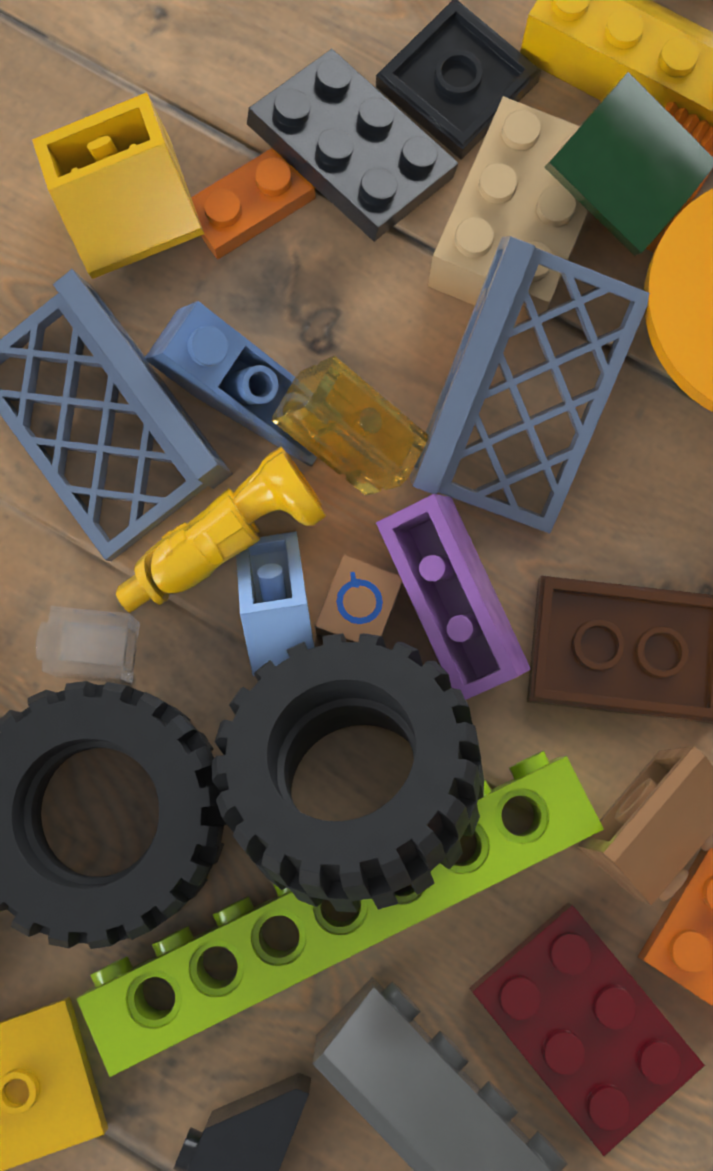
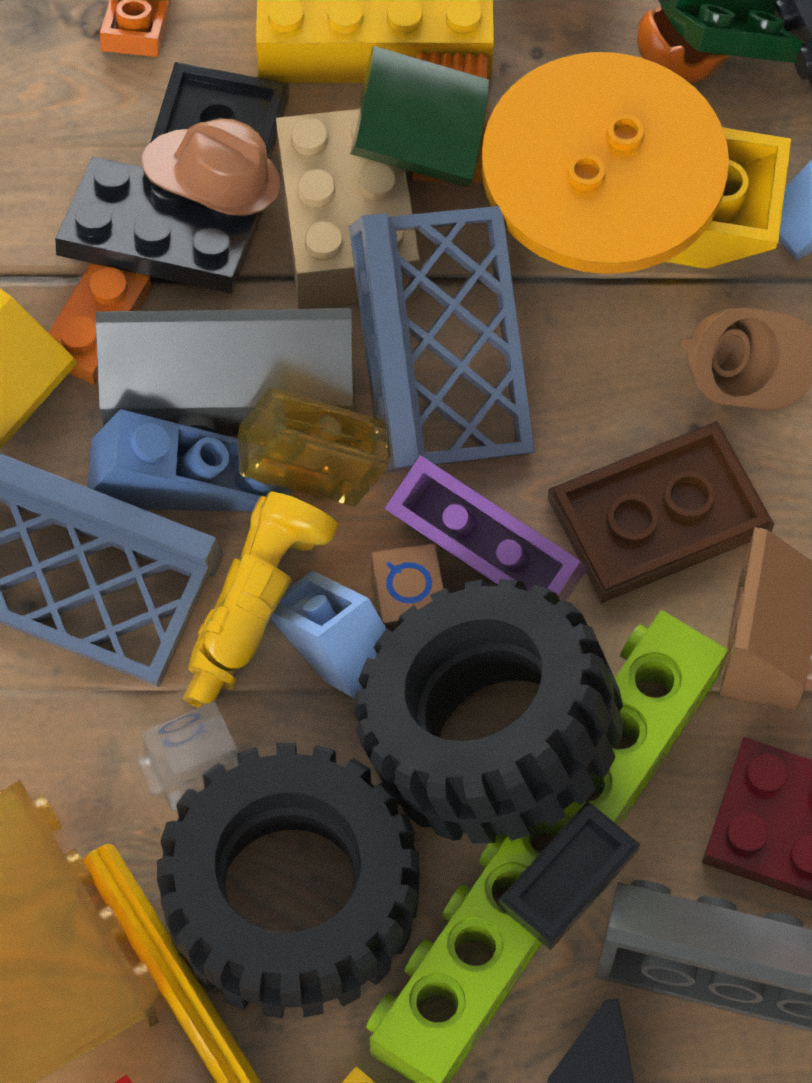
camera: 30 degrees left, 15 degrees down
(313, 306) = (219, 363): none -> slope
(331, 960) = (568, 875): none -> black tile
(426, 115) = (216, 165): none -> nougat piece

